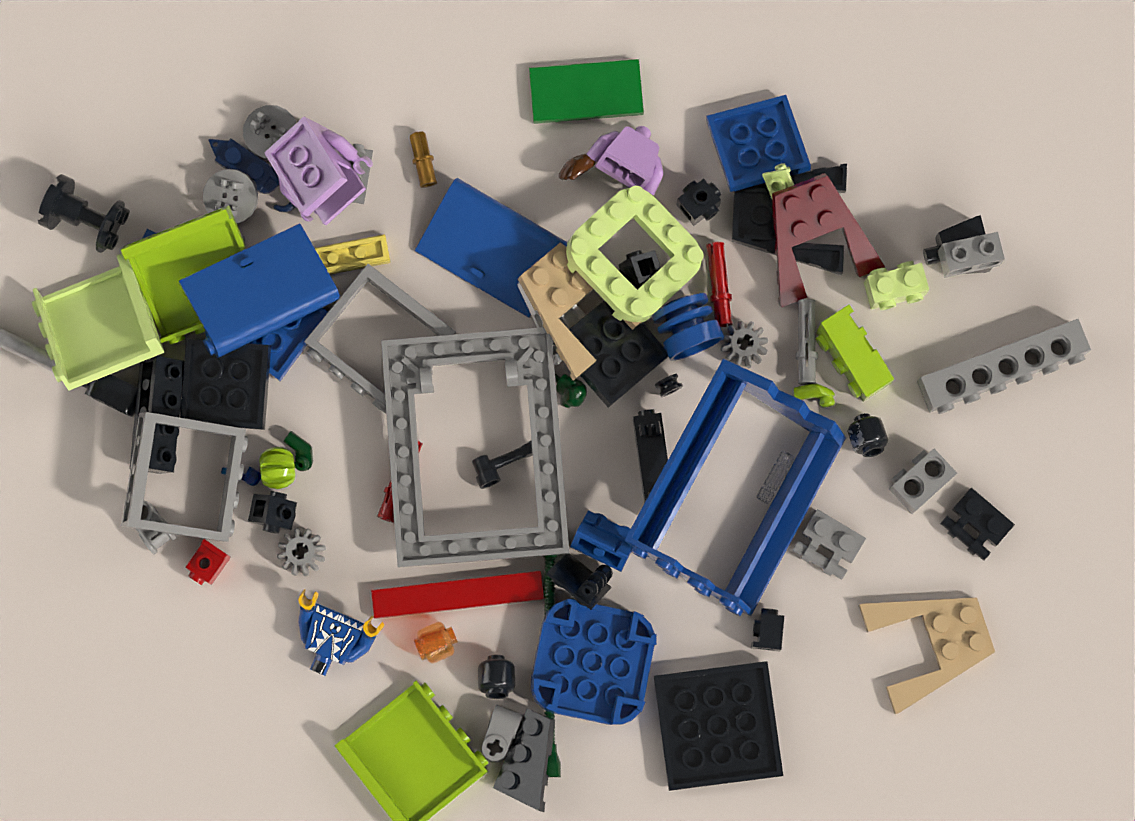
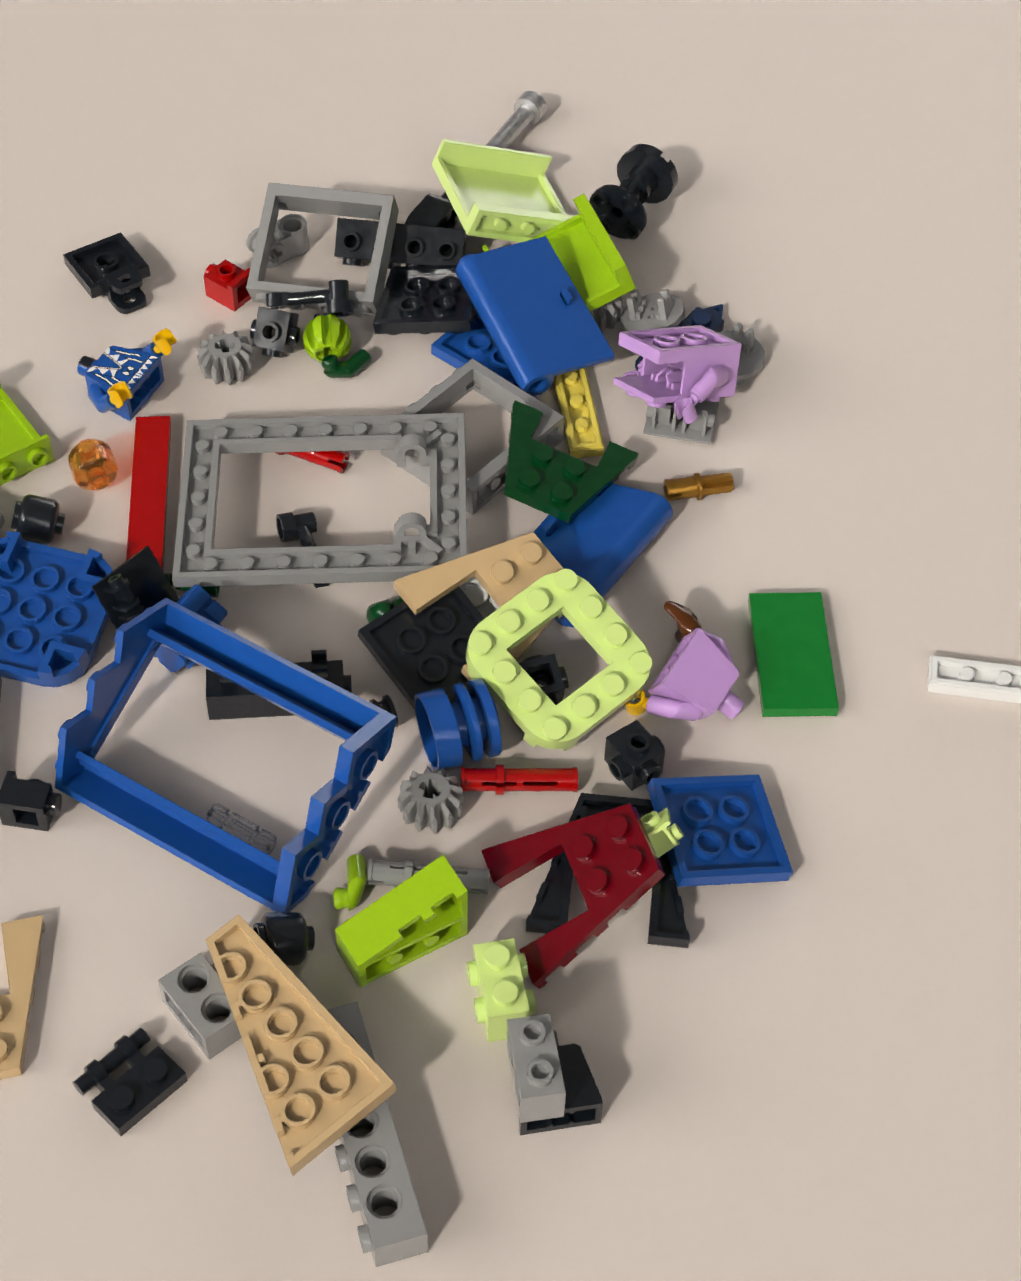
camera: 90 degrees right, 30 degrees down
(205, 661) = (119, 279): none -> black plate
(245, 458) = (335, 298): none -> black brick
(436, 272) = (552, 478): none -> dark green wing
(834, 537) = (144, 896): light grey plate -> none
(973, 404) = (302, 1057): none -> tan wing

